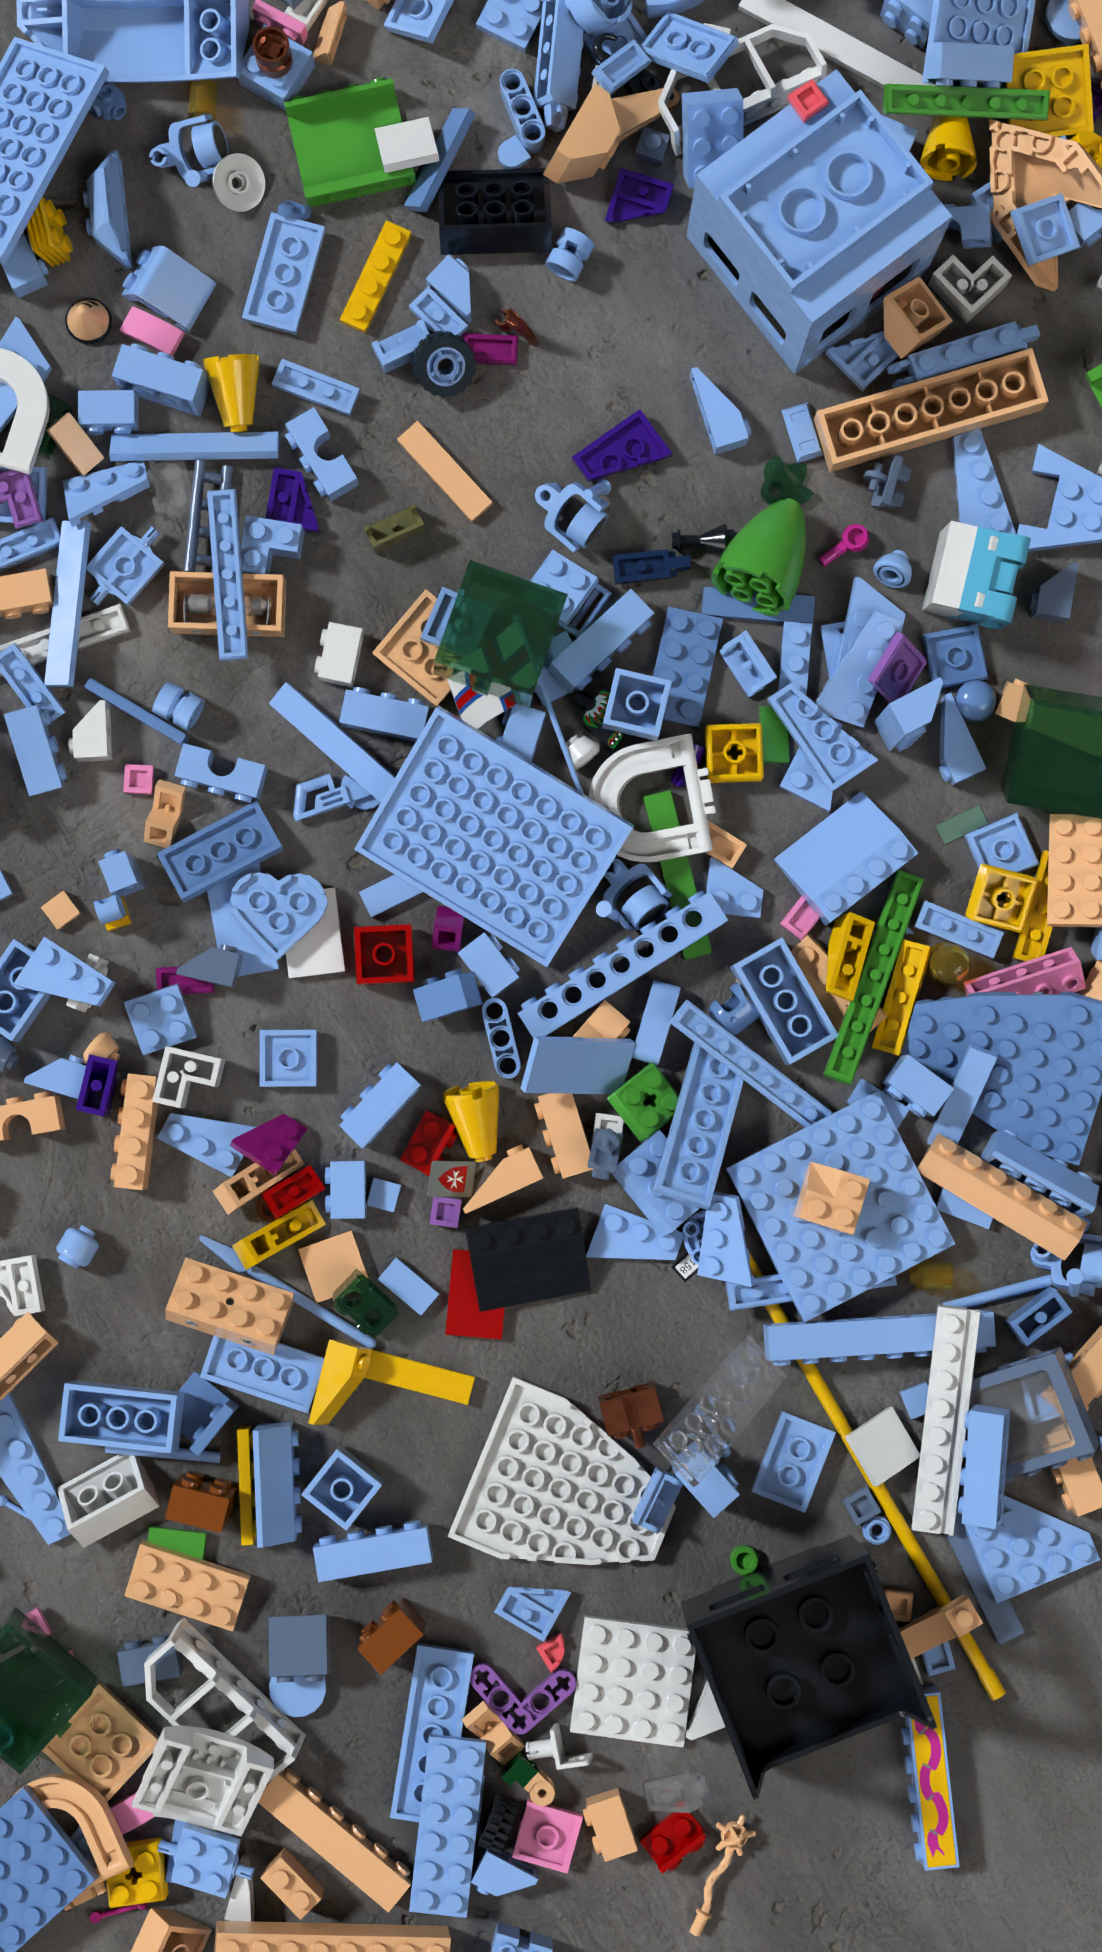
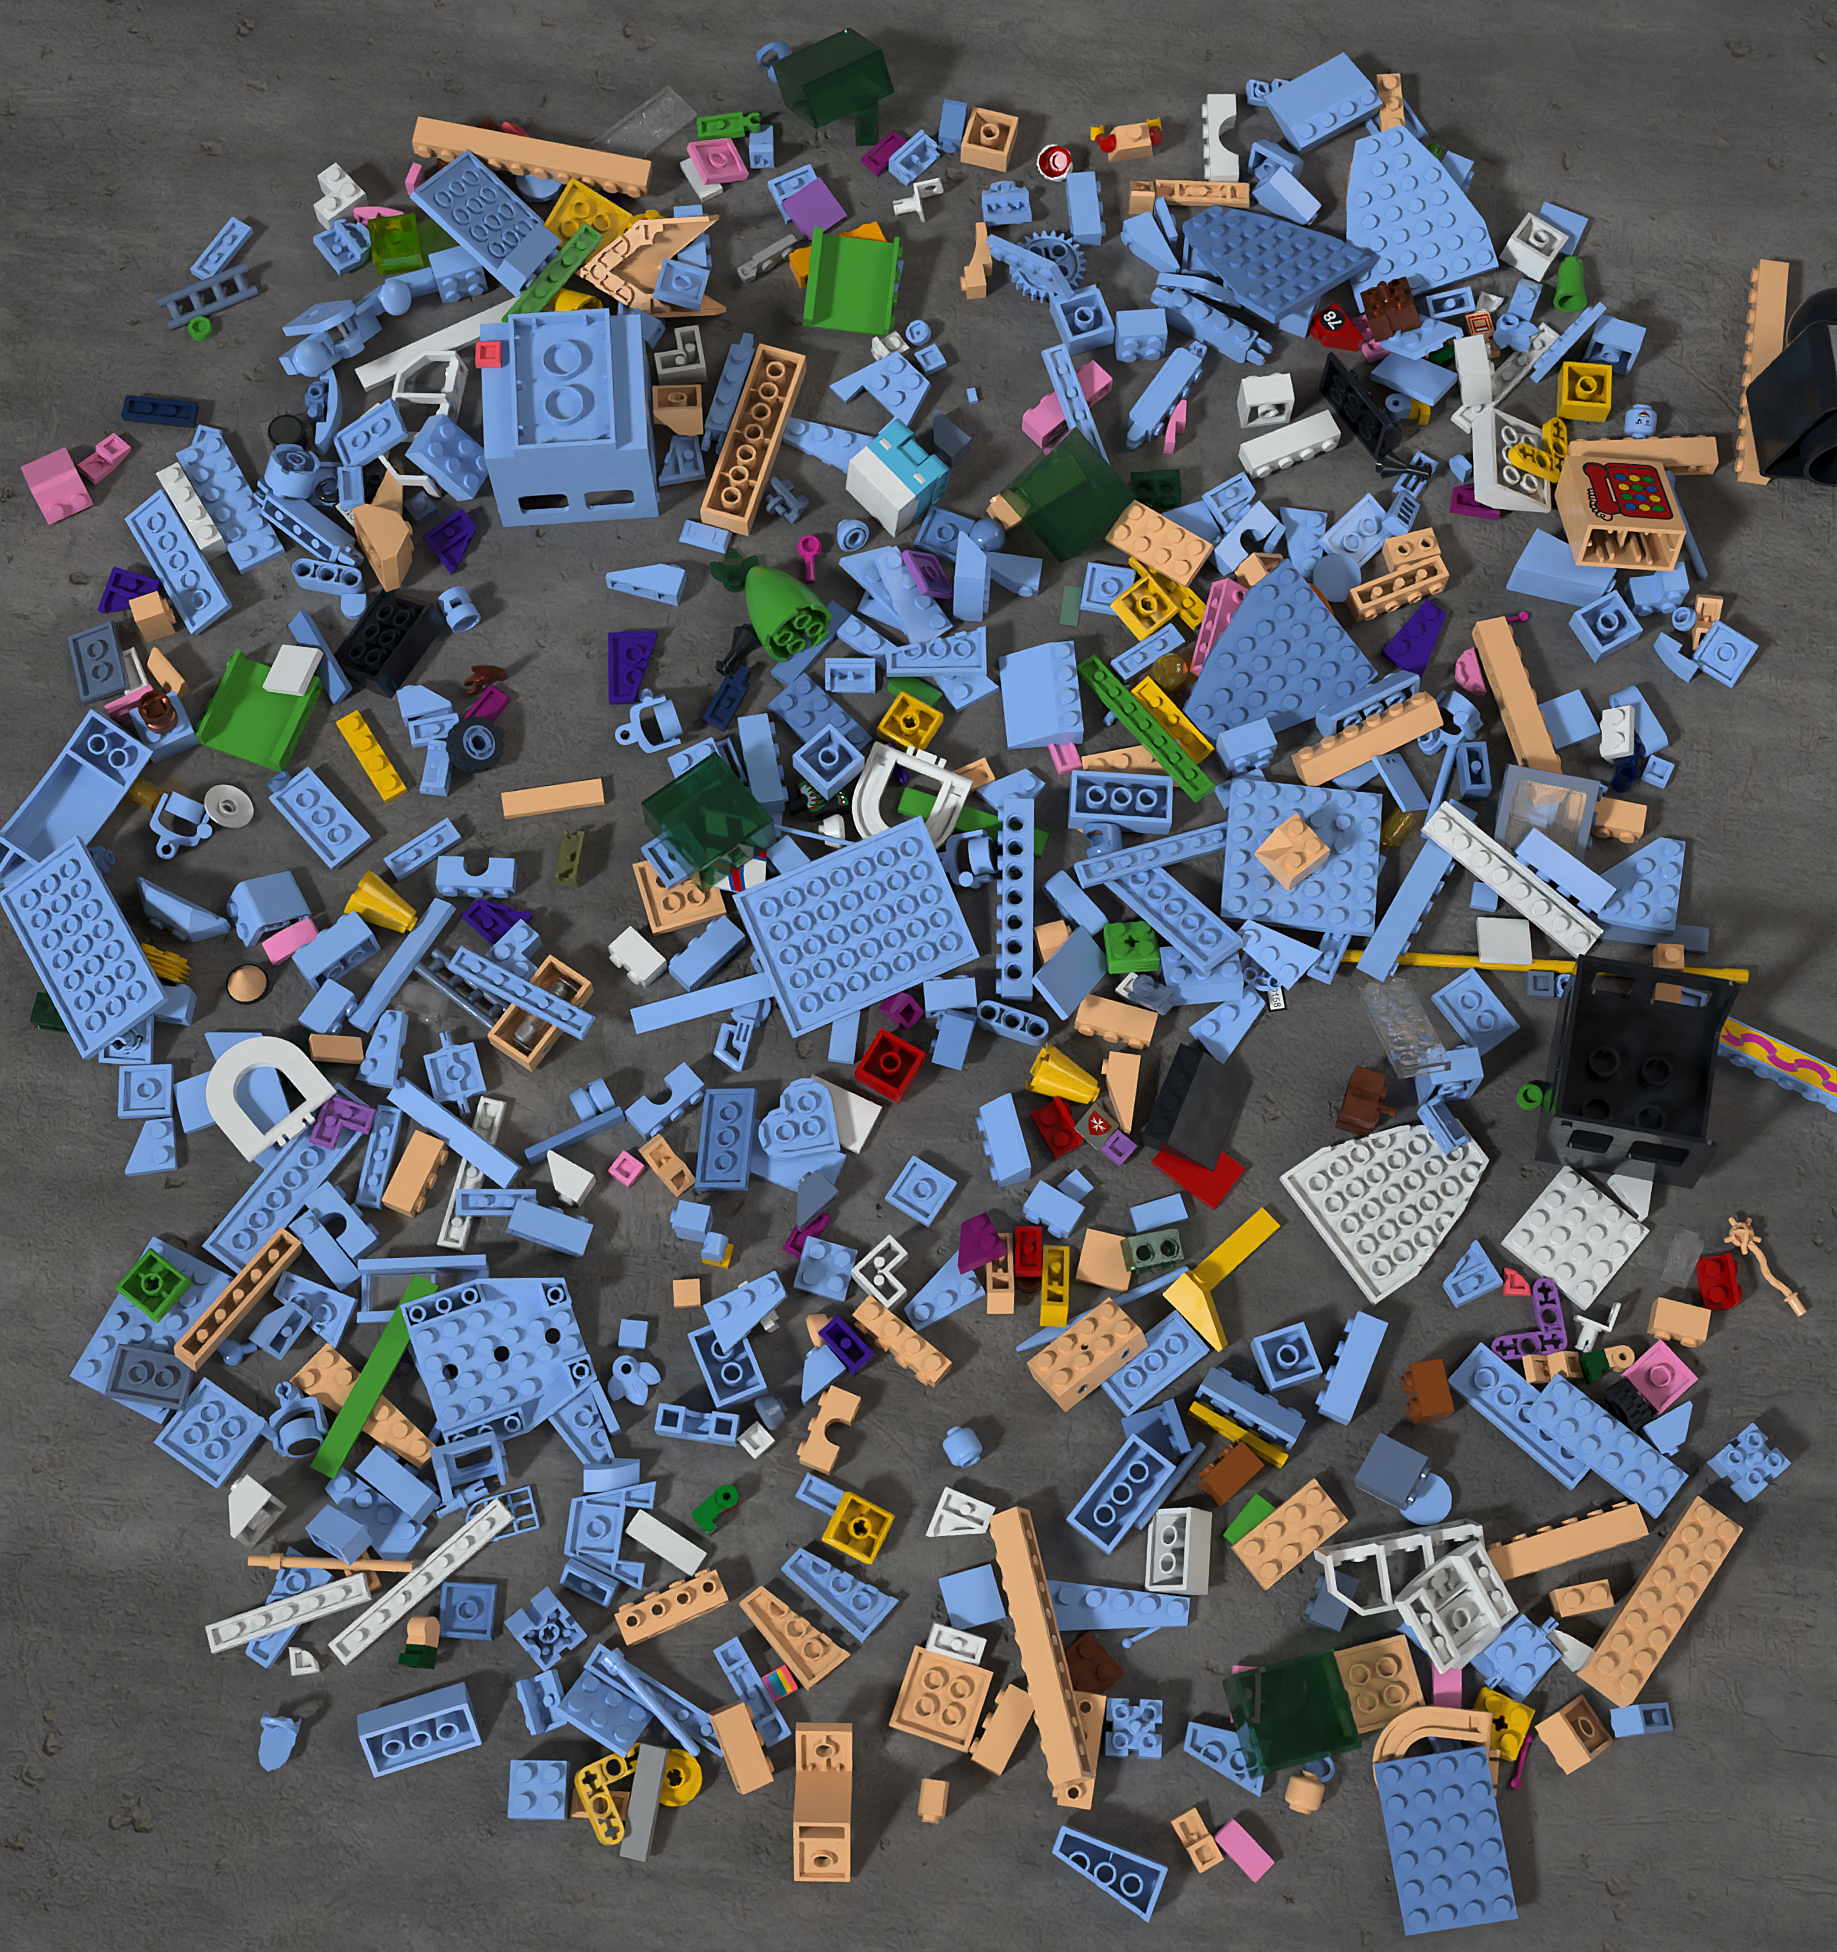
camera: 55 degrees left, 15 degrees down
(847, 954) = (1114, 734): yellow slope -> none
(967, 1090) = (1267, 705): light blue tile -> none
(980, 1253) = (1401, 782): none -> light blue container

